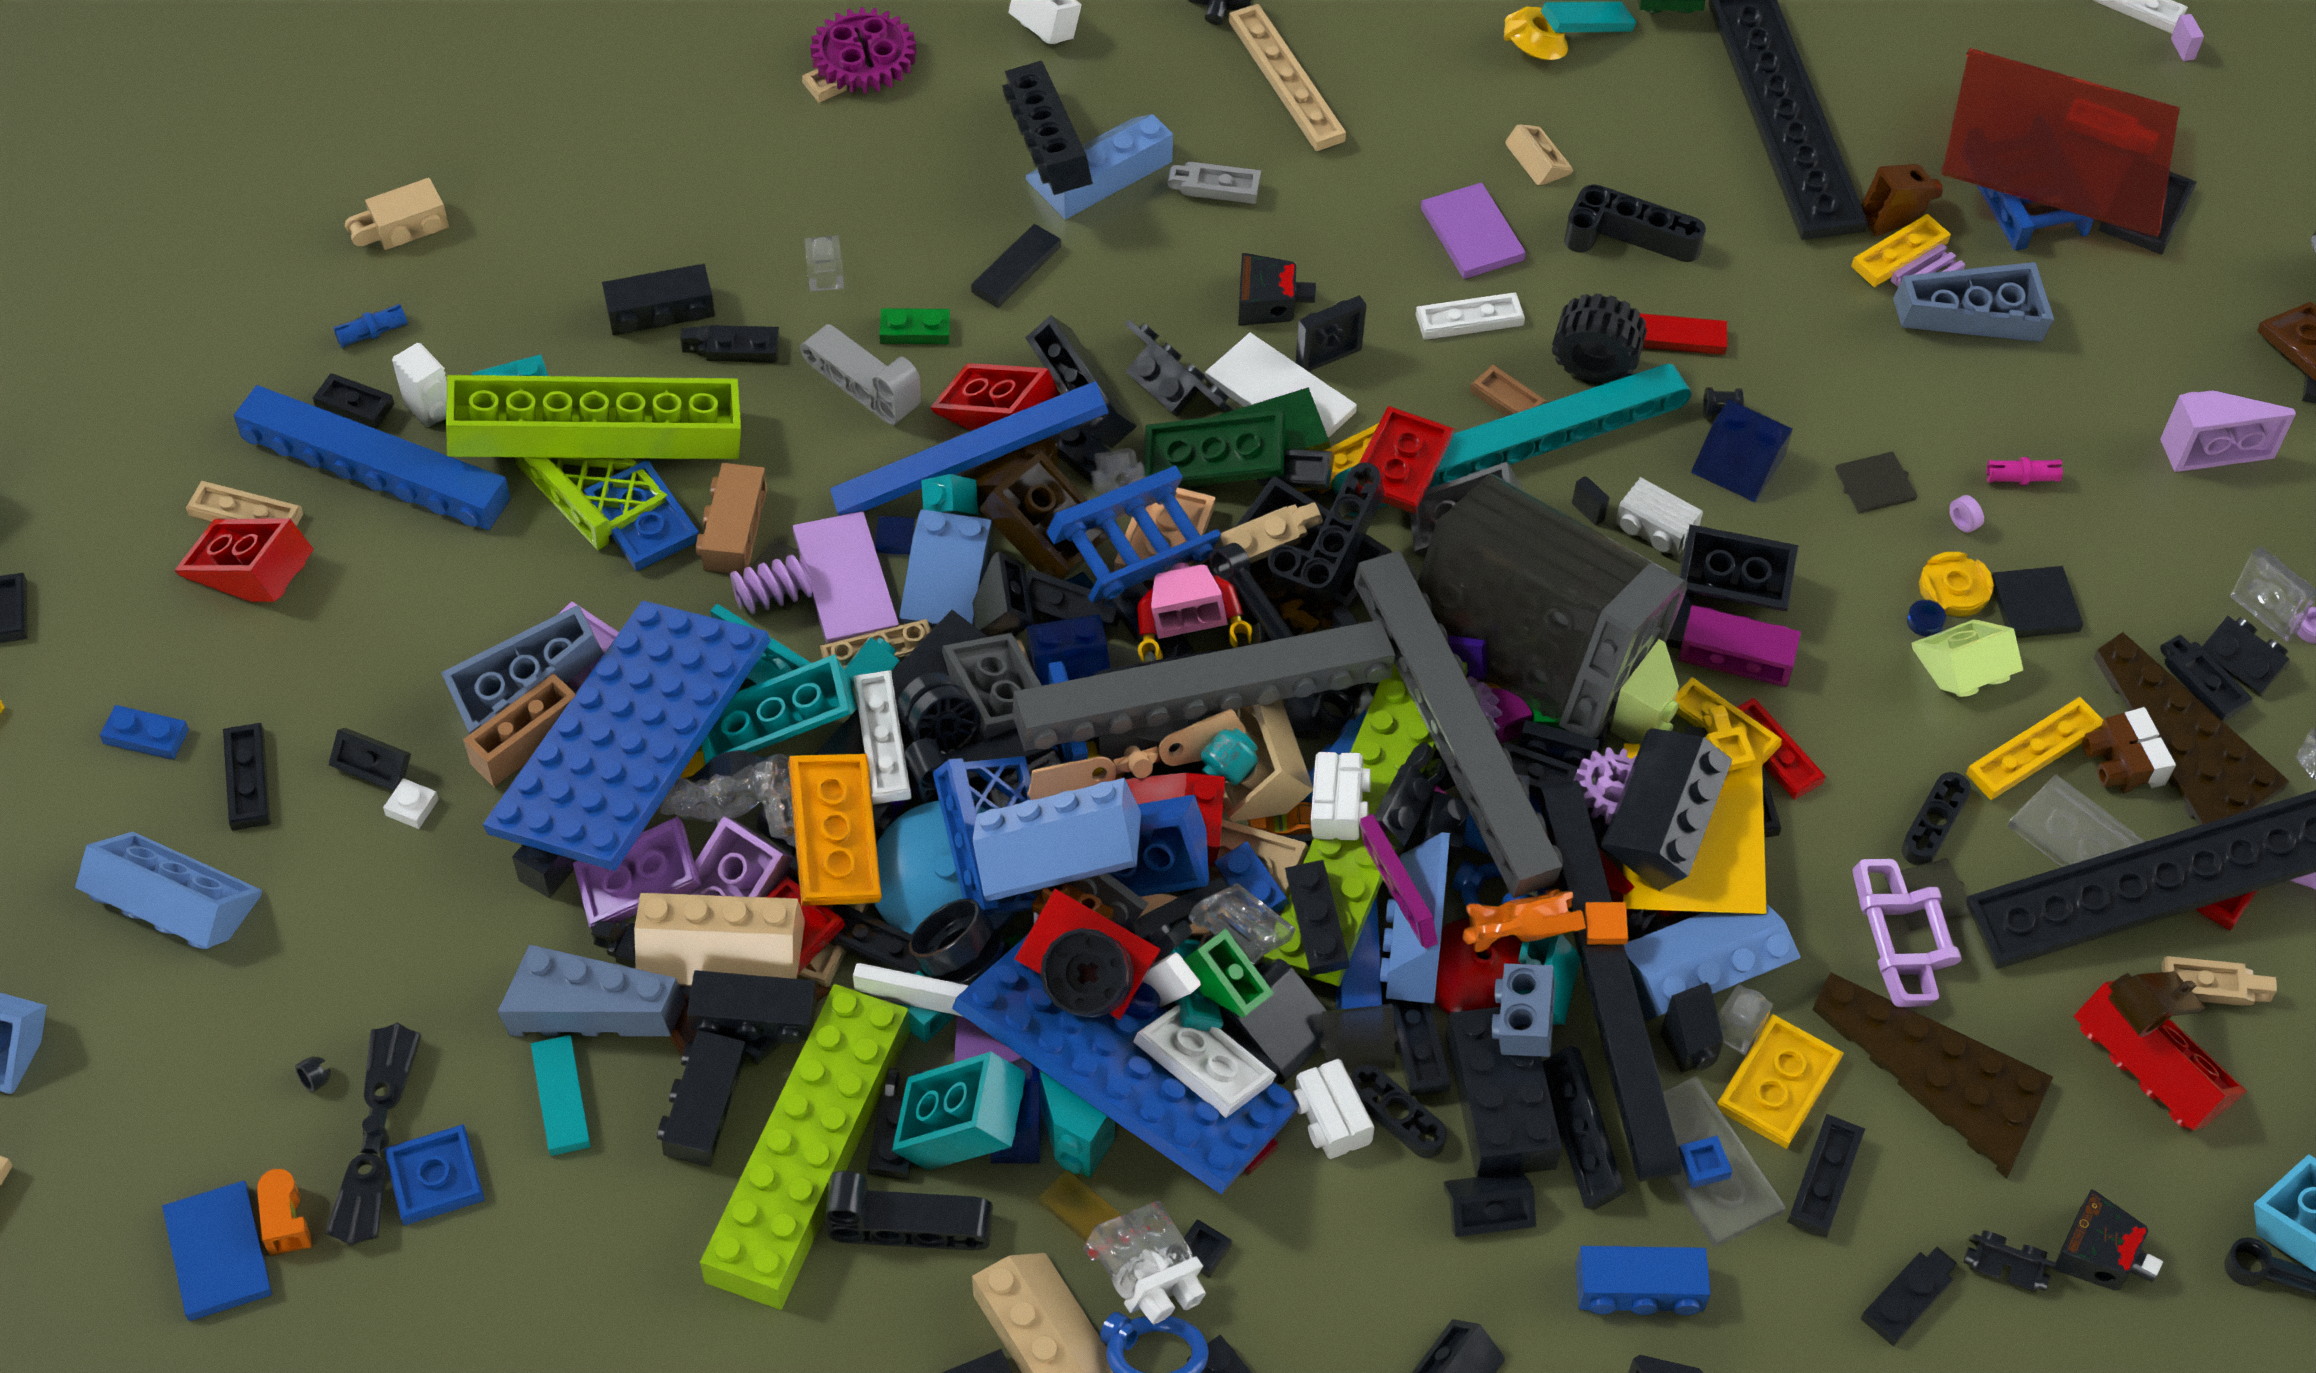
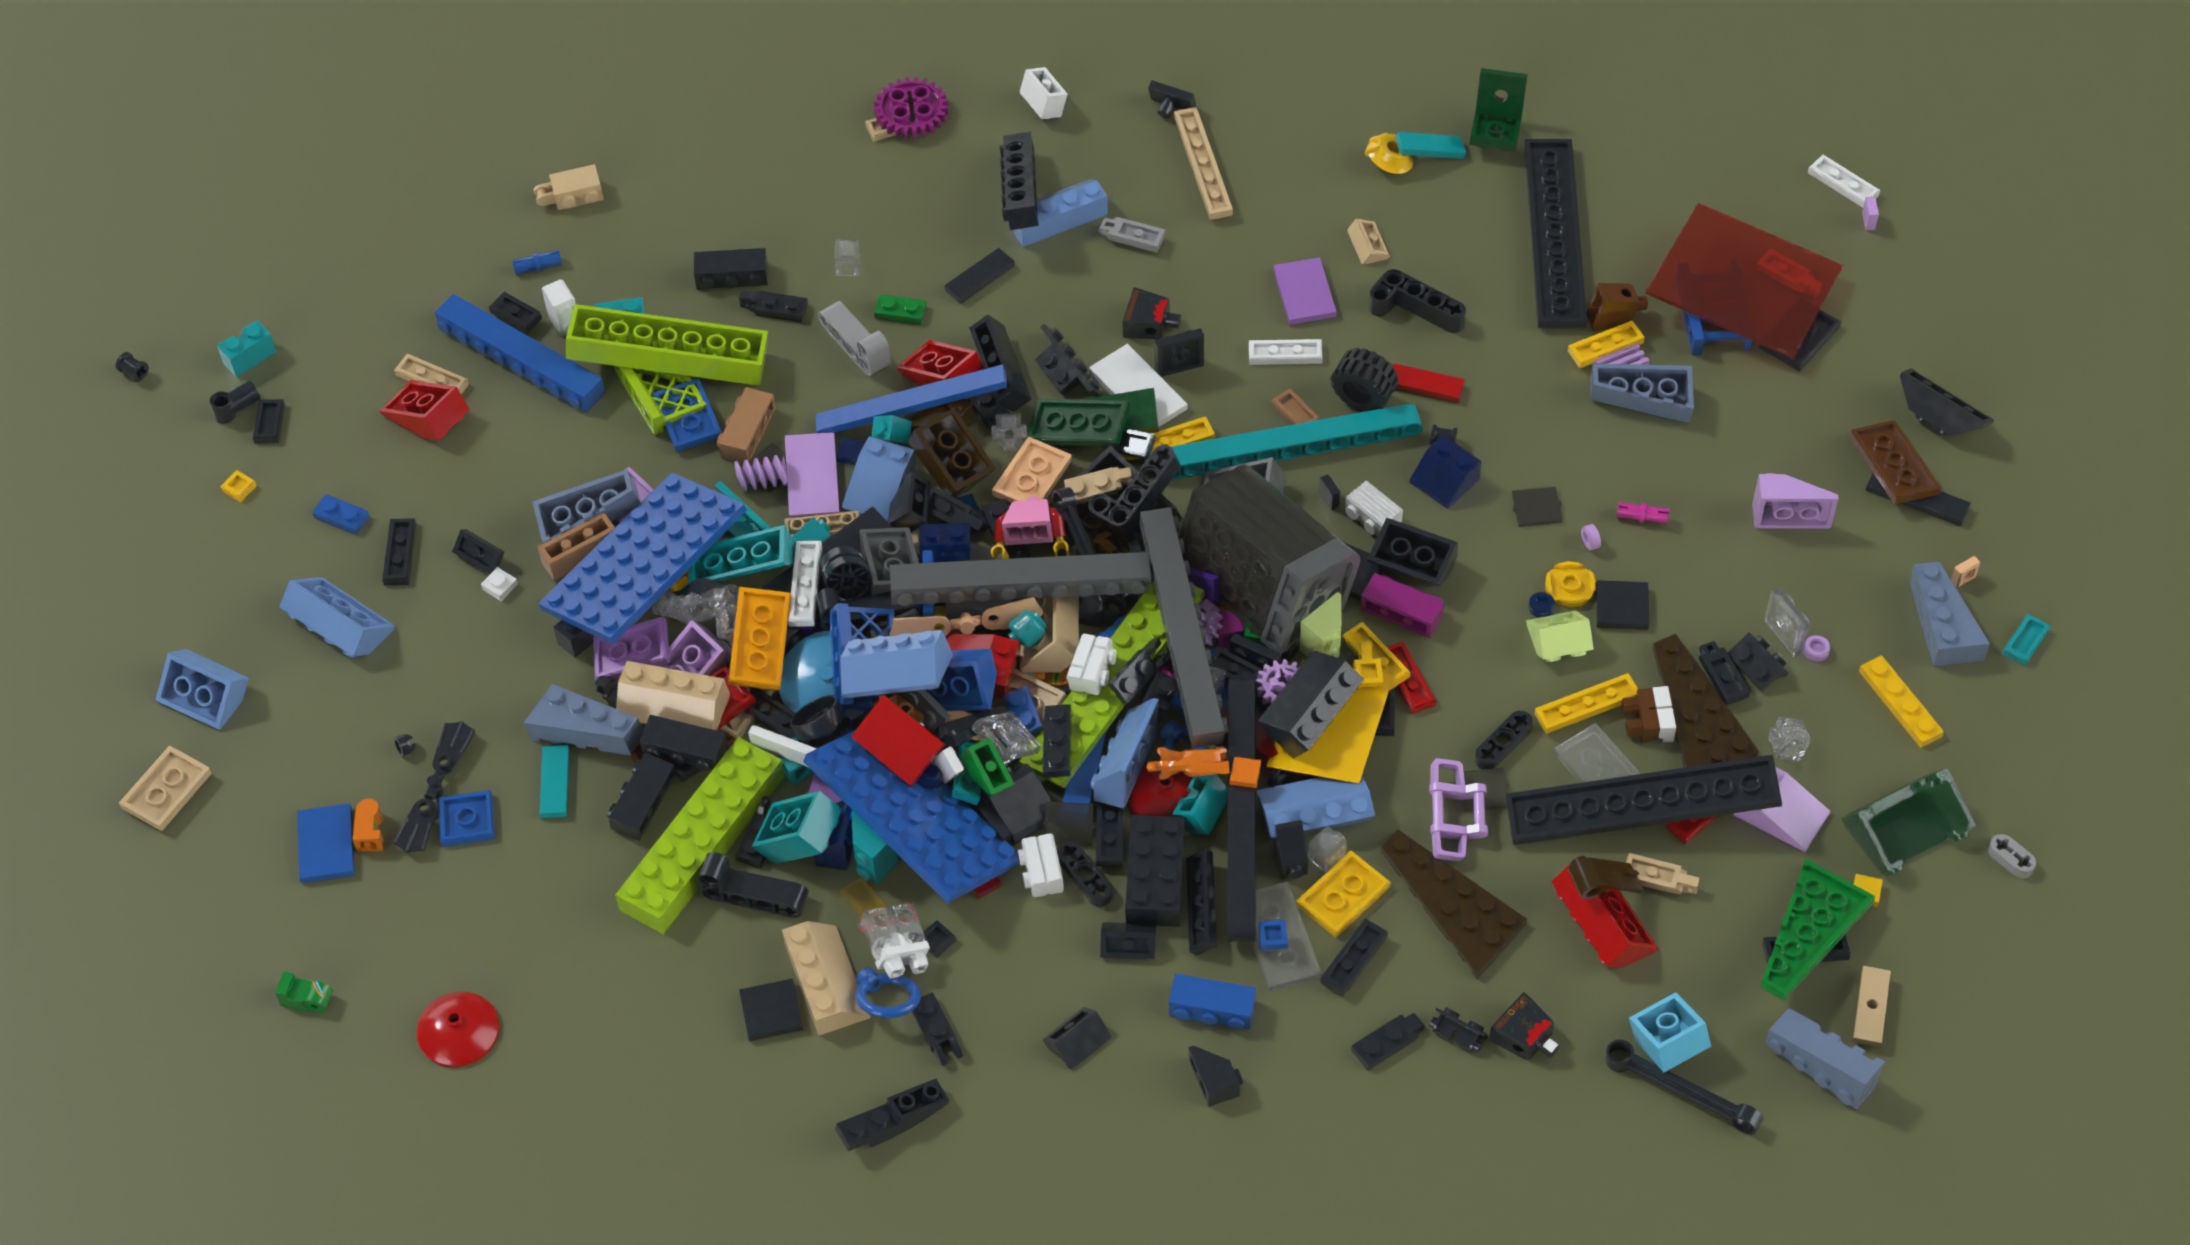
camera: 15 degrees right, 0 degrees up
(1064, 977) = (876, 750): black wheel -> none
(1132, 501) = (1006, 449): blue fence -> none
(1205, 1062) = (961, 822): white tile -> none
(1398, 881) = (1110, 724): magenta tile -> none
(1407, 455) = (1205, 445): red tile -> none
(1529, 1009) = (1180, 820): sand blue brick -> none

